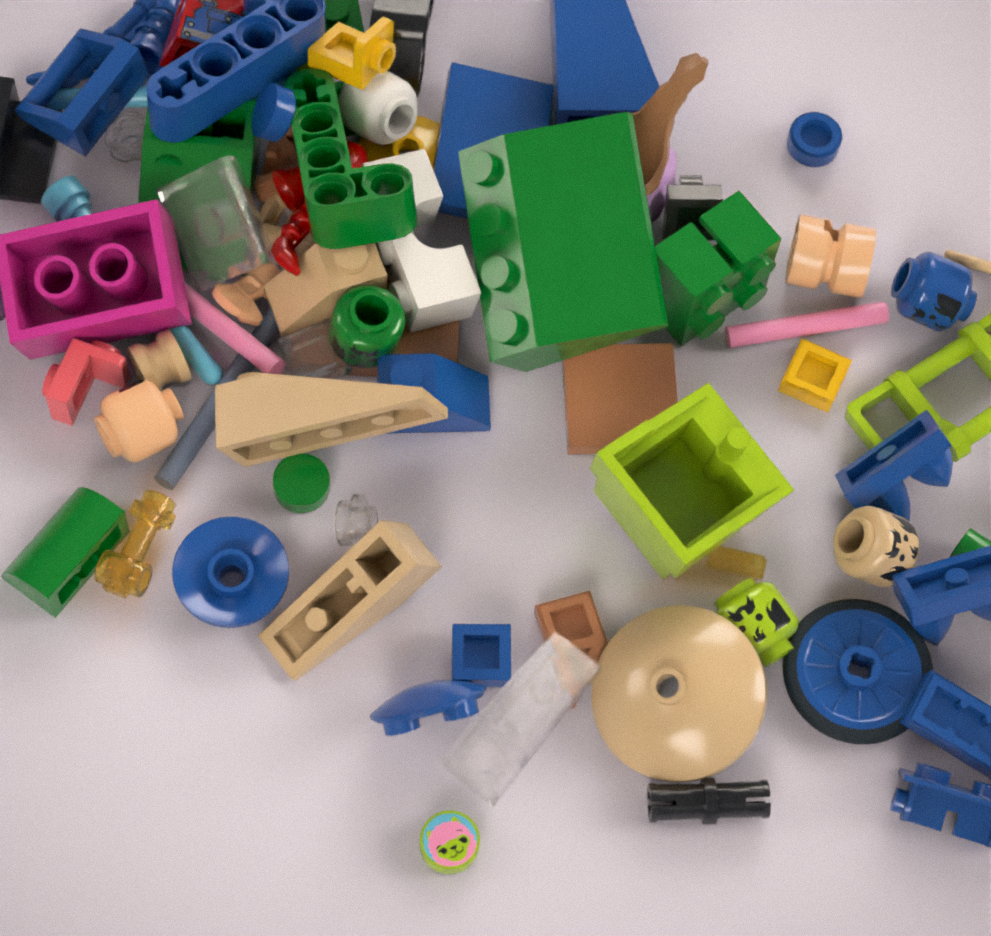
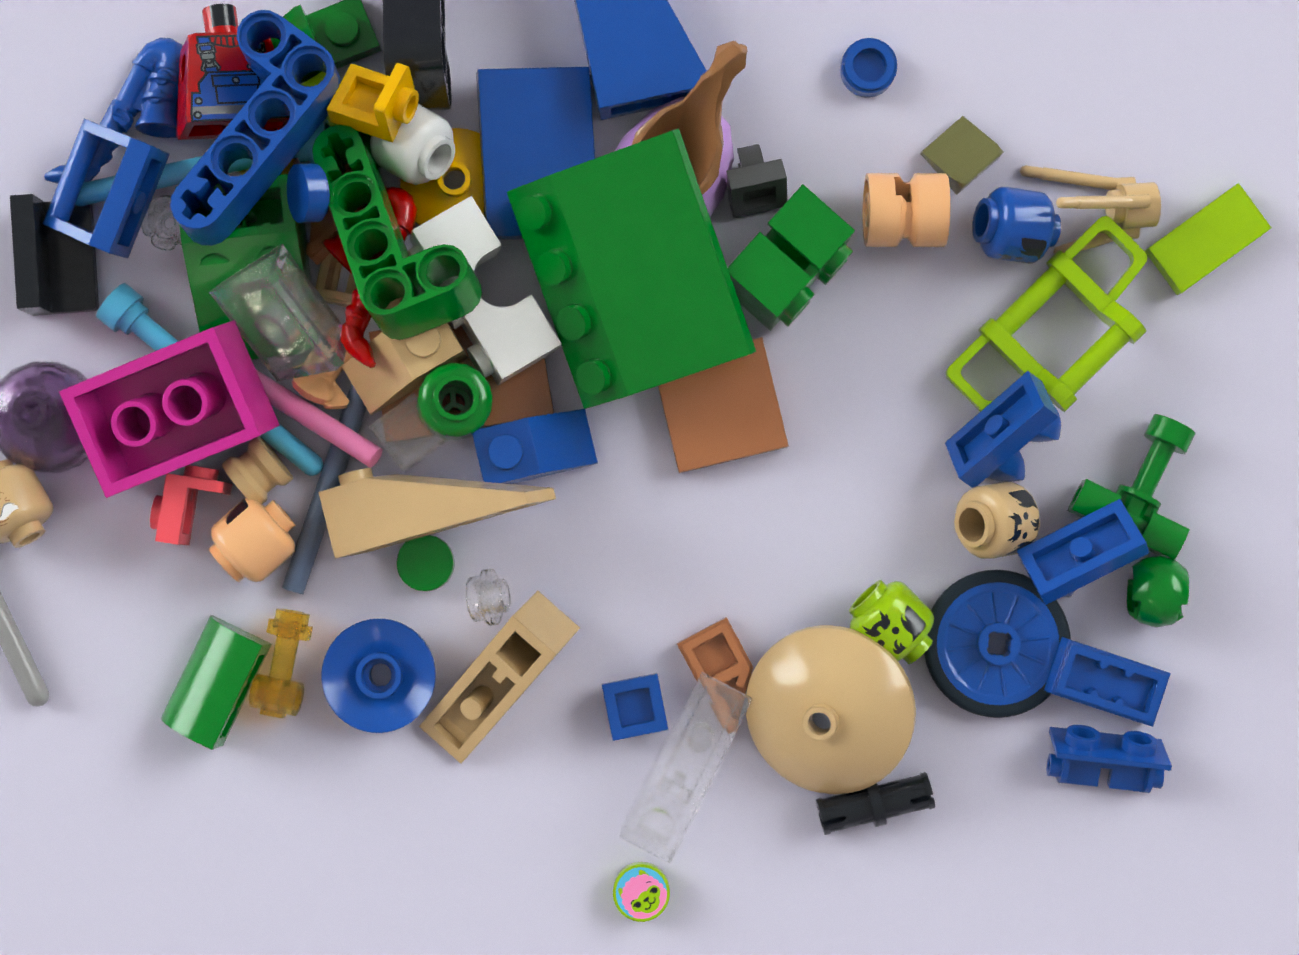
camera: 10 degrees left, 20 degrees up
(449, 697) = (595, 778): blue dish -> none
(686, 481) = (808, 508): lime piece -> none
(736, 563) = (862, 564): clear yellow tile -> none
(806, 324) = (893, 283): bright pink bar -> none
(814, 375) = (909, 337): yellow tile -> none
(896, 227) = (962, 153): none -> olive slope

